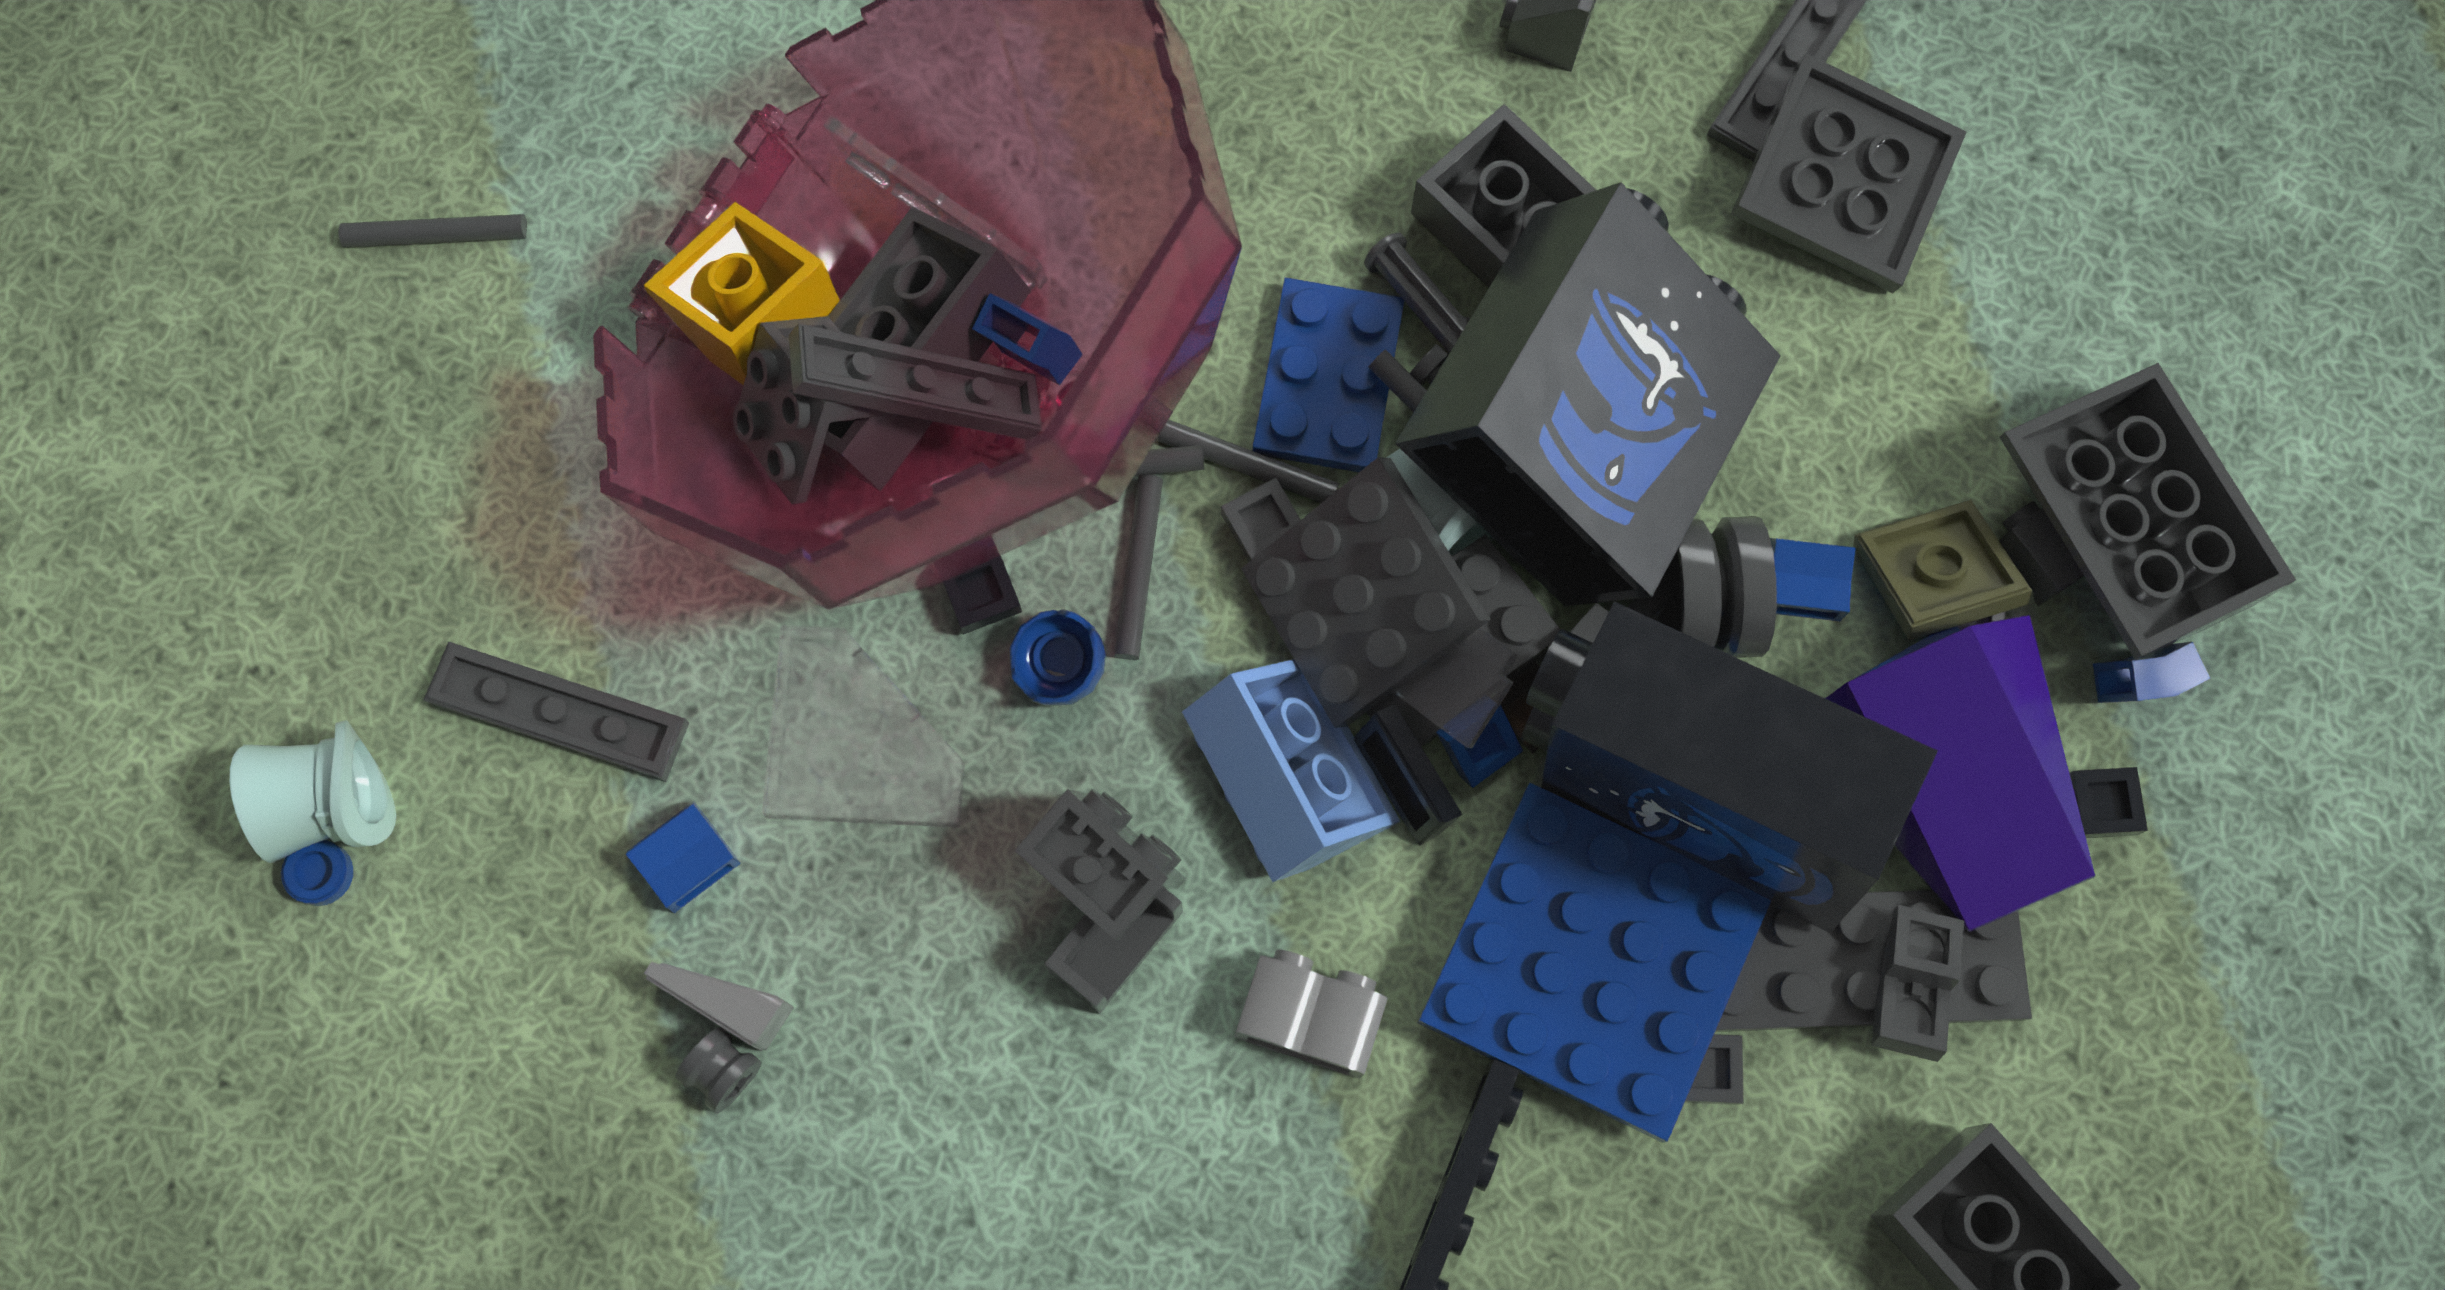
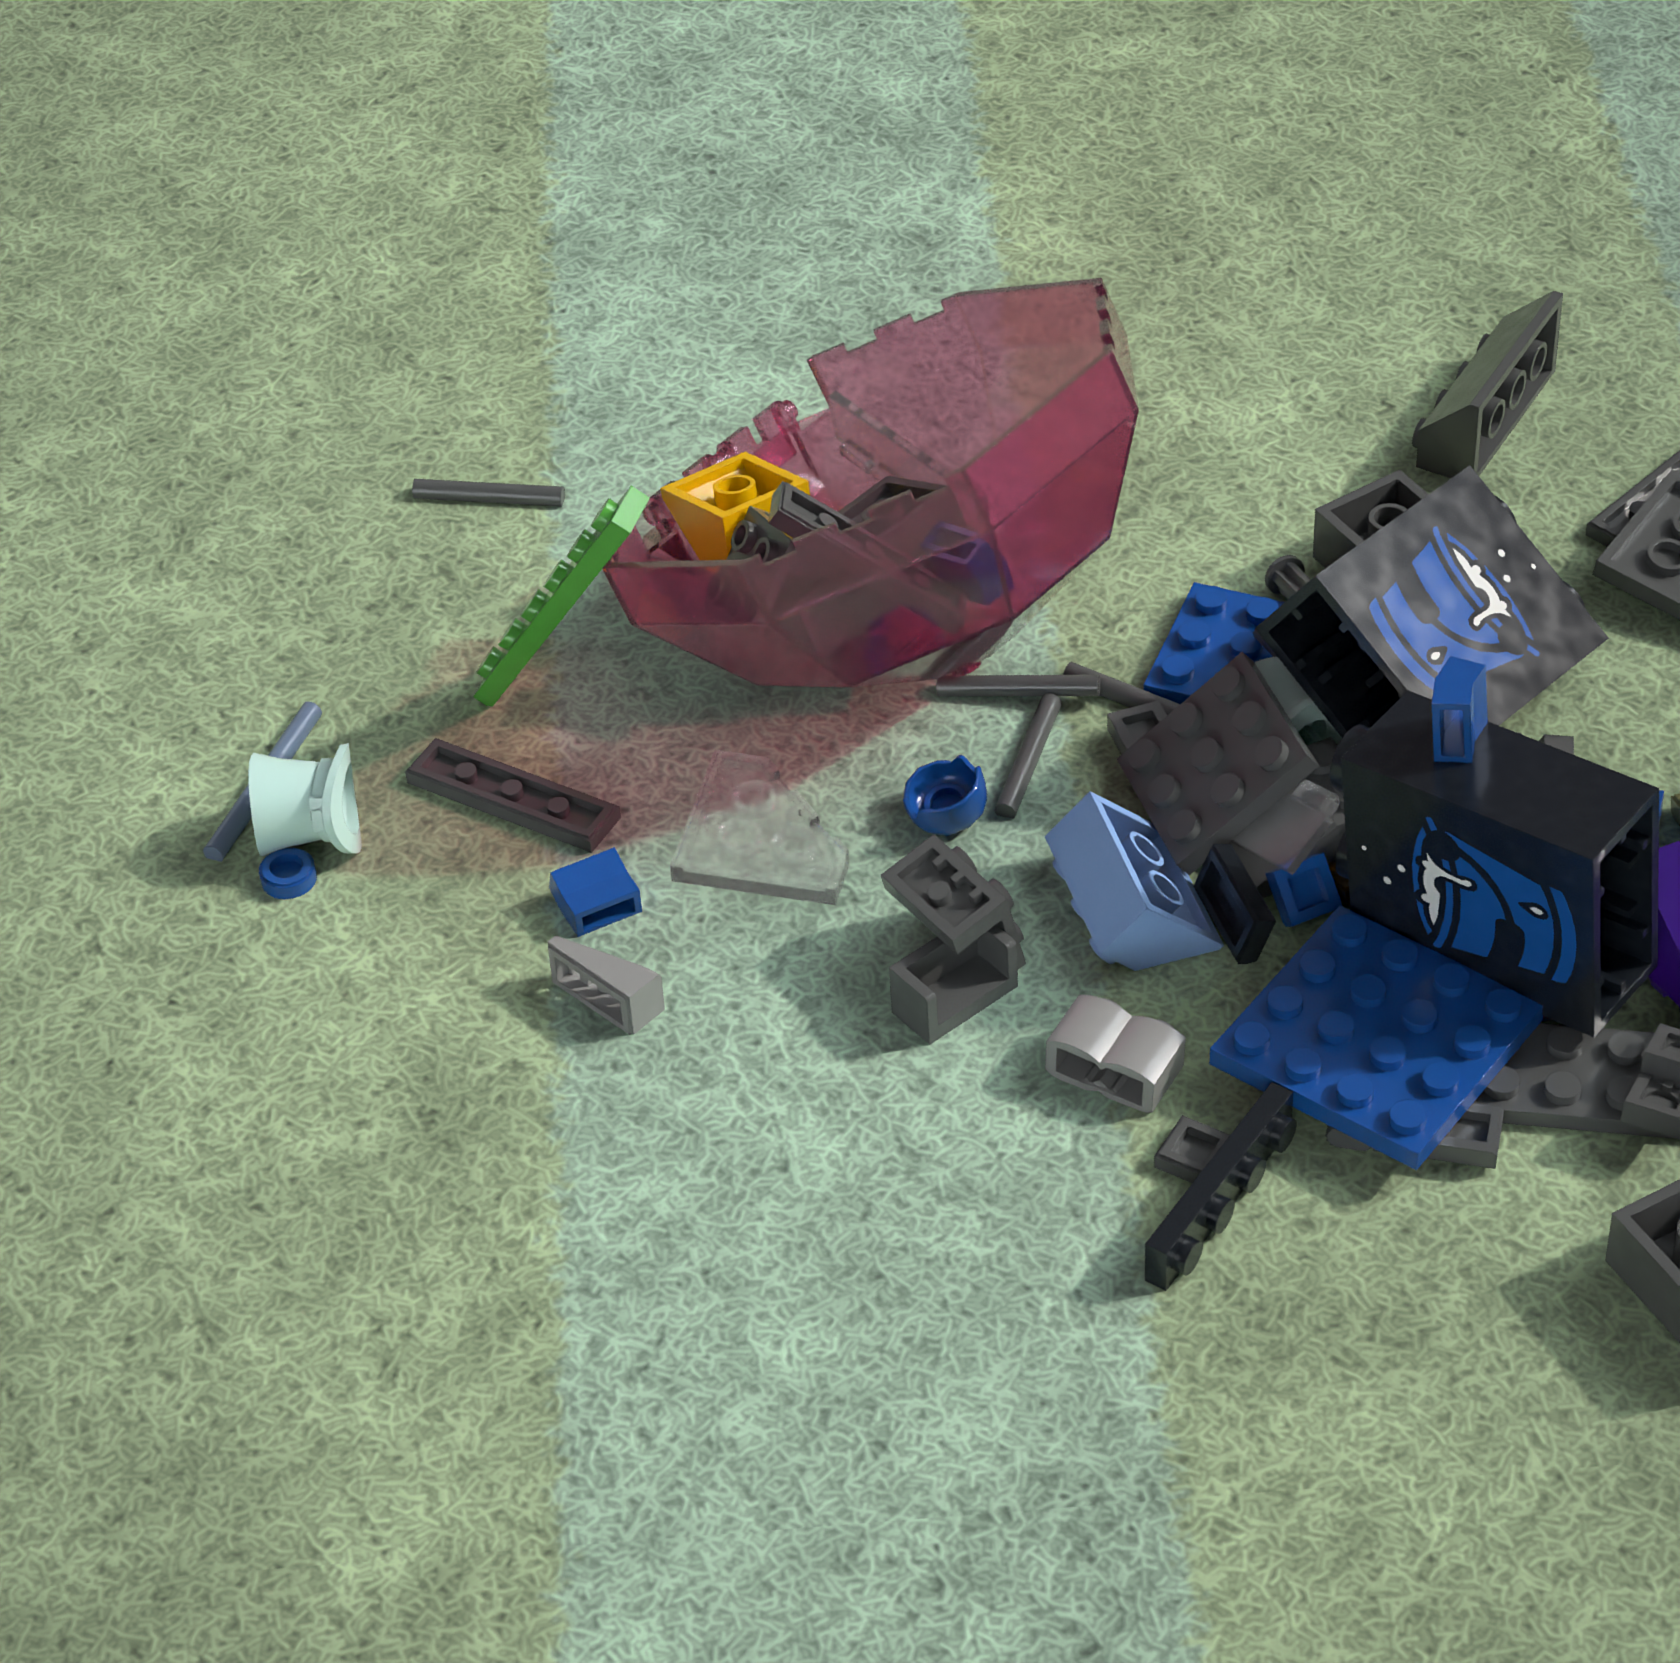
camera: 15 degrees right, 30 degrees down
(261, 716) = (240, 813): none -> sand blue bar
(560, 495) = (565, 586): none -> bright green plate
(718, 1070) = (591, 1027): dark grey wheel -> none
(982, 595) = (888, 751): black plate -> none
(1416, 1133) = (1188, 1149): none -> dark grey tile
(1692, 671) = (1458, 688): none -> blue piece

